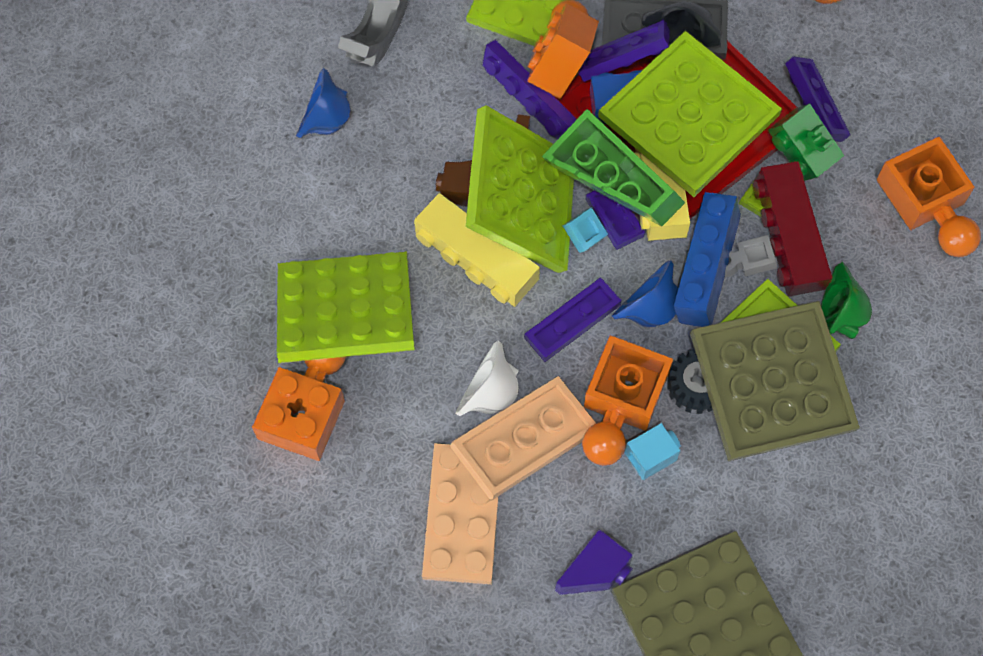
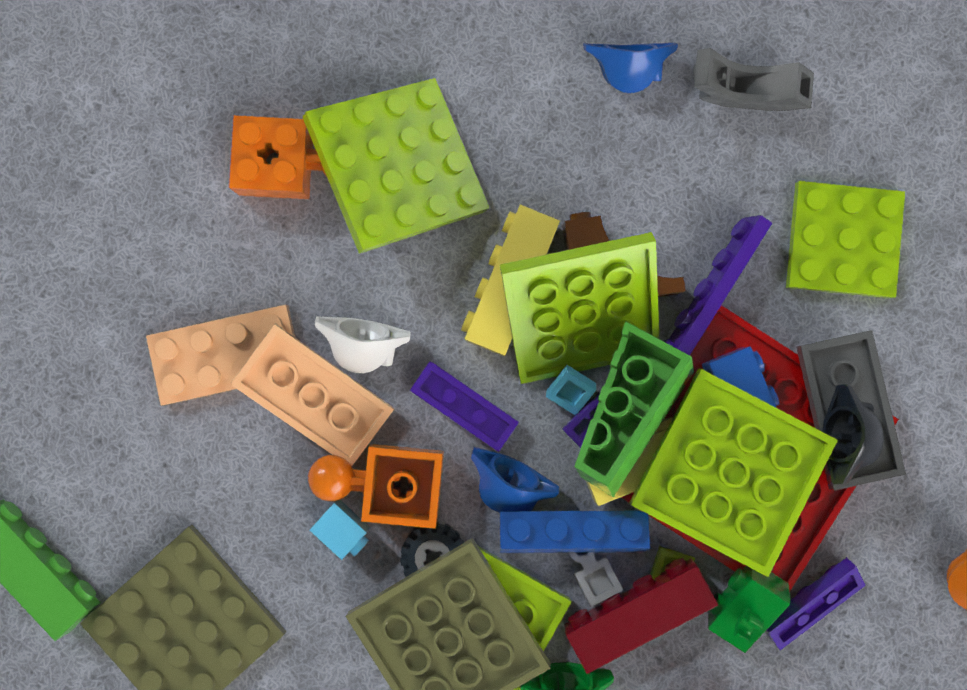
camera: 70 degrees right, 20 degrees up
(563, 47) = (782, 305): orange brick -> none
(596, 567) = (201, 505): dark purple slope -> none
(626, 50) = (796, 375): dark purple plate -> none

